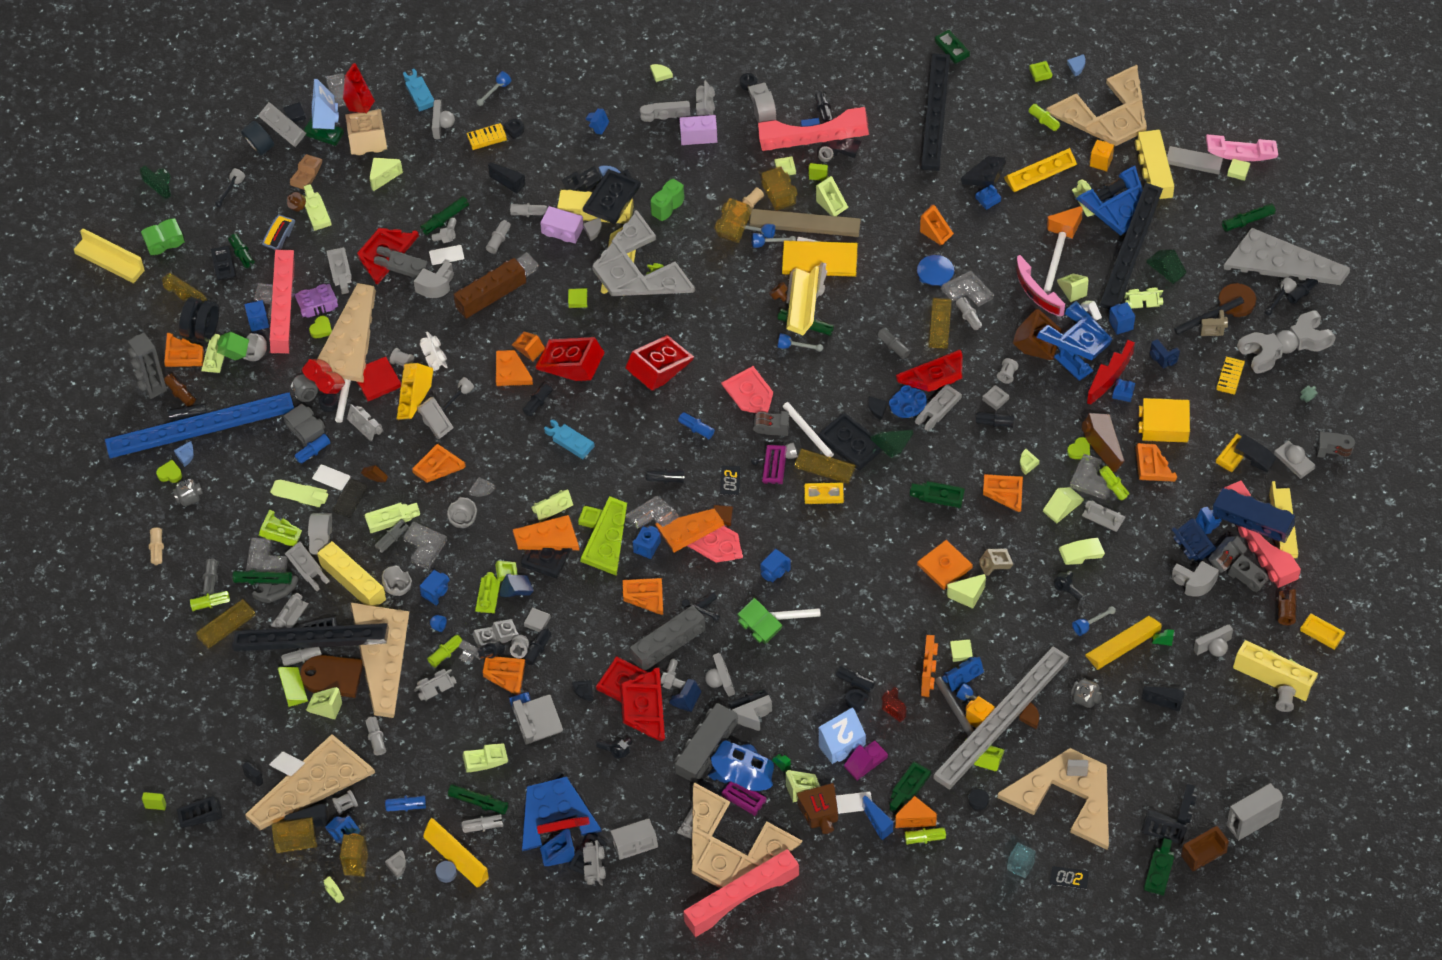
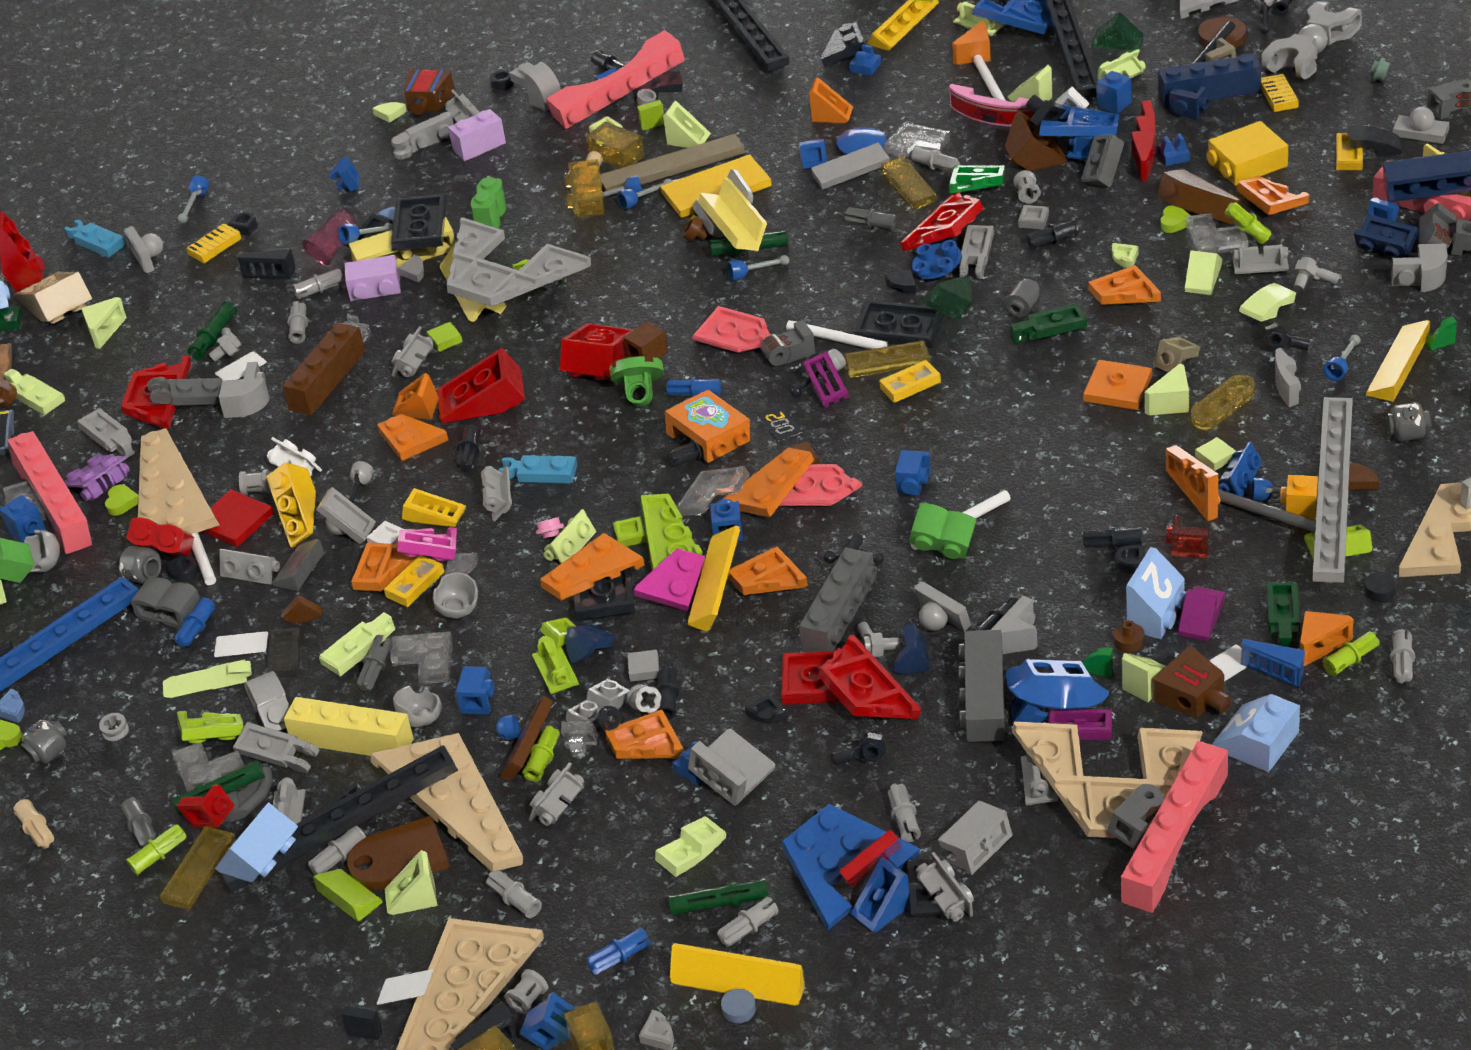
camera: 25 degrees left, 15 degrees down
(231, 494) = (111, 720): none -> light grey bush
(248, 591) = (207, 810): none -> red bracket
(257, 634) = (258, 845): none -> light blue slope
(392, 437) = (299, 565): none -> dark grey slope
(440, 638) = (526, 739): none -> reddish brown tile
(448, 486) = (414, 580): none -> yellow piece
(453, 443) = (385, 534): none -> white tile
(469, 465) = (424, 542): none -> dark pink wing
(486, 424) = (424, 508): none -> yellow slope
(529, 451) = (496, 491): none -> light grey hinge
(545, 489) = (549, 527): none -> bright pink plate
(554, 176) = (325, 241): none -> clear pink plant
(554, 298) = (406, 360): none -> light grey hinge
(565, 183) = (349, 232): none -> blue hinge
(588, 570) = (673, 580): none -> dark pink wing
(608, 801) = (903, 812): none -> light grey axle
(610, 581) = (713, 579): none -> yellow slope
(664, 401) = (637, 373): none -> bright green tile
(682, 462) = (709, 423): none -> orange panel
(687, 376) = (646, 341): none -> reddish brown brick
(692, 68) = (427, 90): none -> reddish brown torso
(721, 874) = (1134, 814): none -> dark grey leg
(813, 753) = (1128, 637): none -> reddish brown tile
(833, 859) = (1261, 731): none -> light blue slope
(895, 265) = (812, 153): none -> blue tile
(912, 289) = (849, 166): none -> light grey tile
(936, 464) = (1022, 297): none -> dark grey brick
(950, 854) = (1402, 656): none -> light grey axle
(980, 344) = (975, 177): none -> green wing
(1000, 609) = (1222, 401): none -> clear yellow plate
(1044, 617) = (1286, 382): none -> light grey slope
(1058, 316) = (1044, 110): none -> black tile
(1068, 376) = (1102, 160): none -> dark grey slope
(1124, 539) = (1307, 271): none -> light grey piece
(1191, 342) = (1221, 77): none -> dark blue brick

